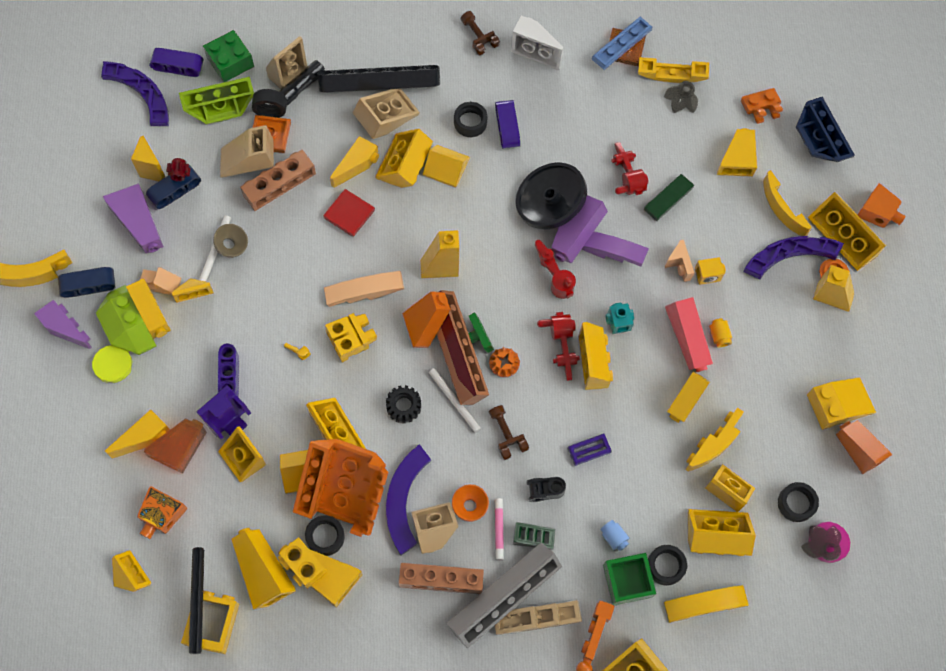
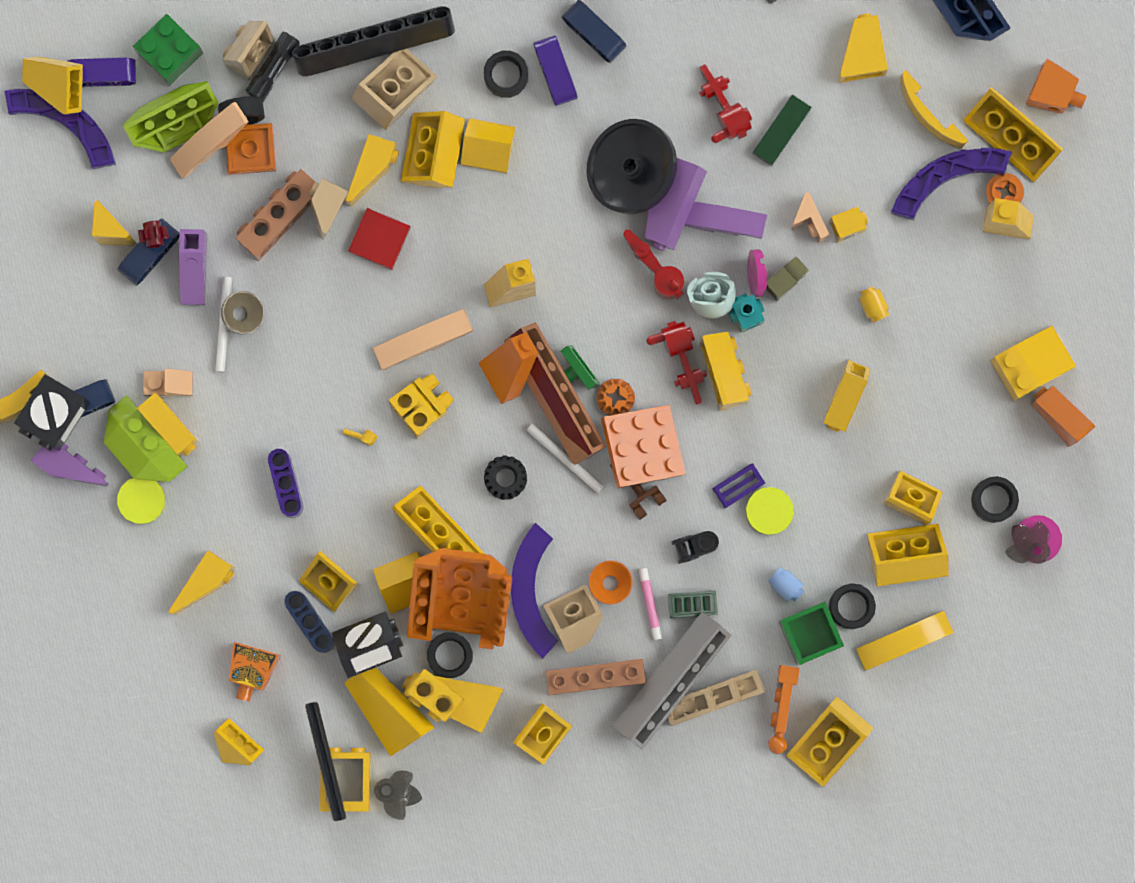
camera: 10 degrees left, 15 degrees up
(60, 280) = (51, 413): none -> black brick
(134, 214) = (110, 299): medium lavender slope -> none
(140, 58) = (55, 82): none -> yellow slope
(177, 445) = (250, 585): clear orange slope -> none
(192, 289) = (210, 383): yellow slope -> none
(203, 200) = (192, 266): none -> medium lavender slope
(211, 477) = (301, 613): none -> dark blue beam
(224, 412) = (296, 537): dark purple panel -> none
(242, 113) = (208, 140): none -> light nougat slope
(248, 152) = (231, 188): tan slope -> none
(254, 646) = (401, 794): none -> clear smoke plate
(258, 510) = (368, 644): none -> black brick
(315, 176) = (325, 204): none -> tan slope
(385, 617) = (542, 734): none -> yellow slope
(518, 401) = (643, 446): none -> plate
(541, 103) = (594, 31): none -> dark blue beam
(595, 300) = (712, 295): none -> light aqua cylinder
(611, 474) = (769, 511): none -> neon yellow tile
(633, 288) = (756, 273): none -> dark pink tile
(654, 301) = (786, 278): none -> olive leg
(689, 333) = (835, 315): coral slope -> none
(715, 444) = (884, 454): yellow slope -> none

